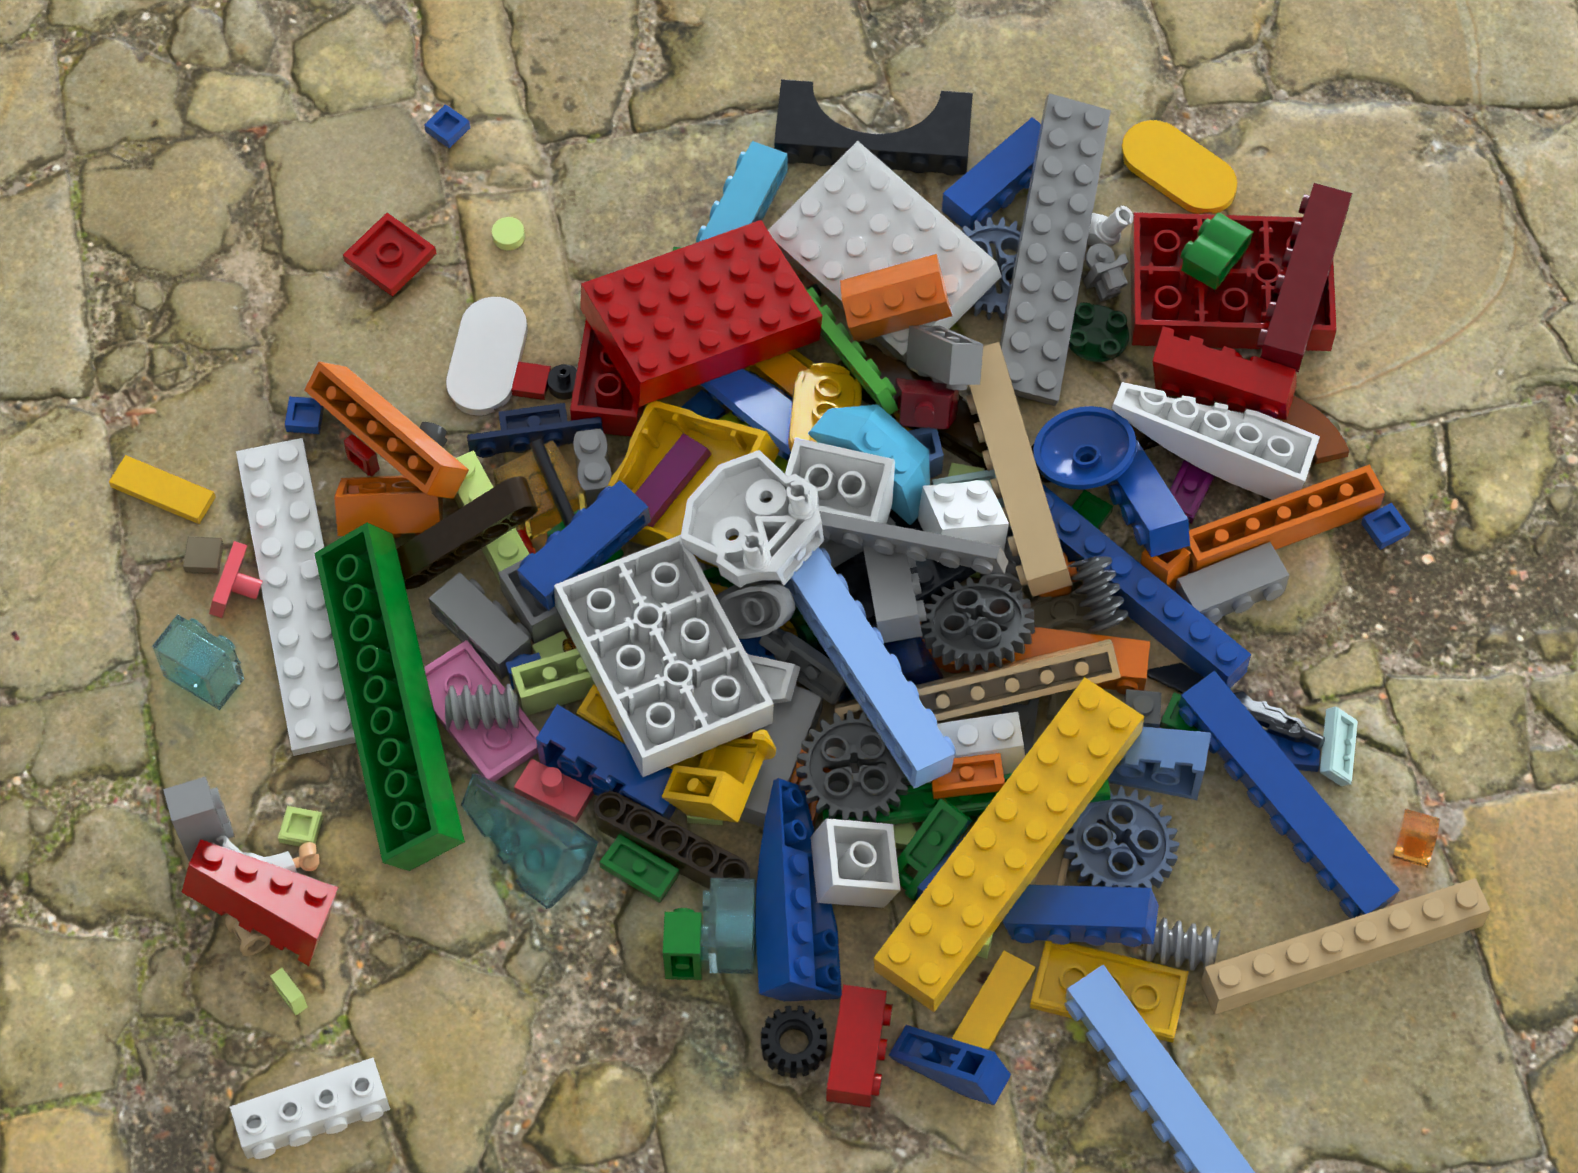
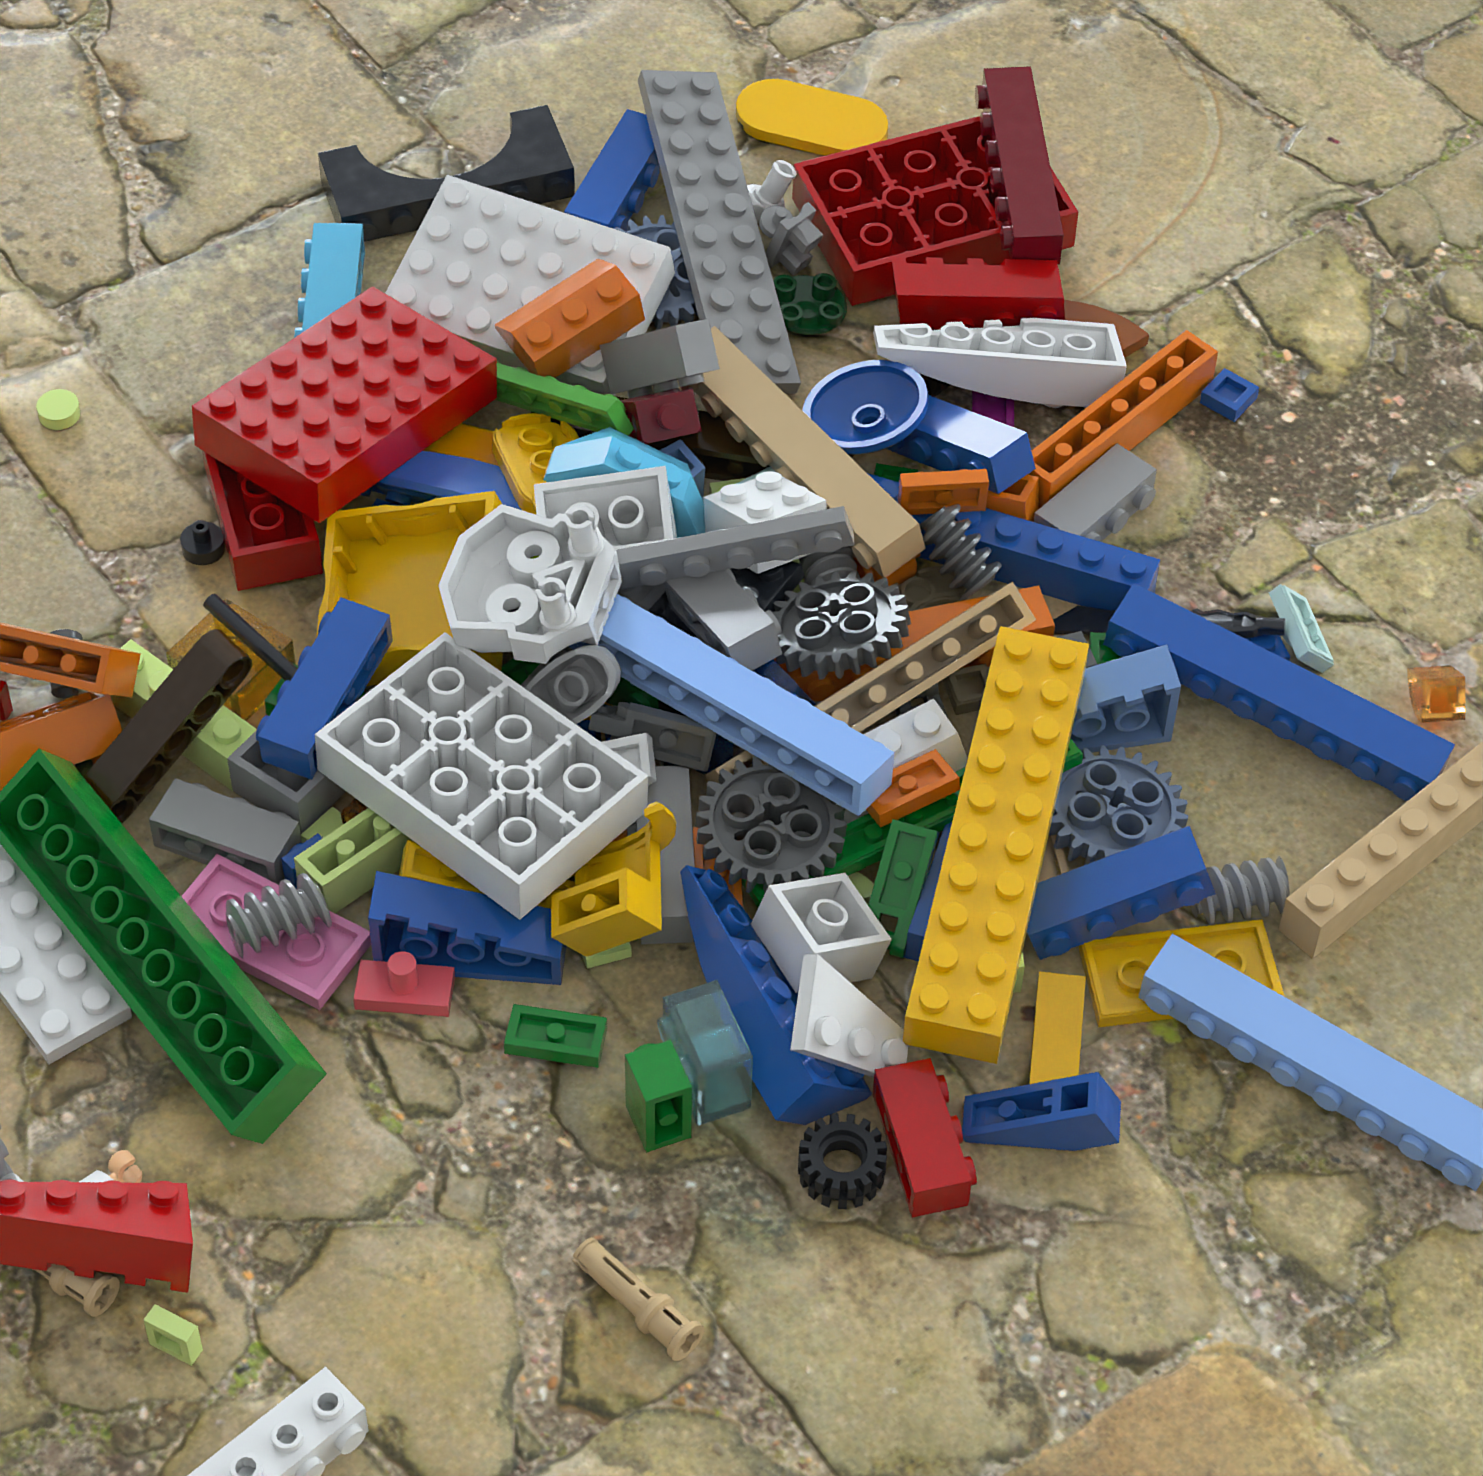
camera: 25 degrees left, 10 degrees down
(300, 826) = (95, 1140): yellowish green tile -> none
(486, 355) = (93, 544): white tile -> none
(529, 424) = (179, 603): dark blue bracket -> none
(531, 380) = (161, 554): red tile -> none
(536, 843) = (413, 1053): clear light blue wedge -> none
(592, 462) = (279, 605): light grey brick -> none
(612, 1101) = (653, 1311): none -> tan pin
(663, 831) = (563, 983): dark brown beam -> none
(672, 476) = (395, 580): magenta tile -> none
(830, 945) = (841, 1023): none -> white wing
(1100, 541) = (933, 490): none -> orange plate
(1215, 250) = (907, 168): green brick -> none

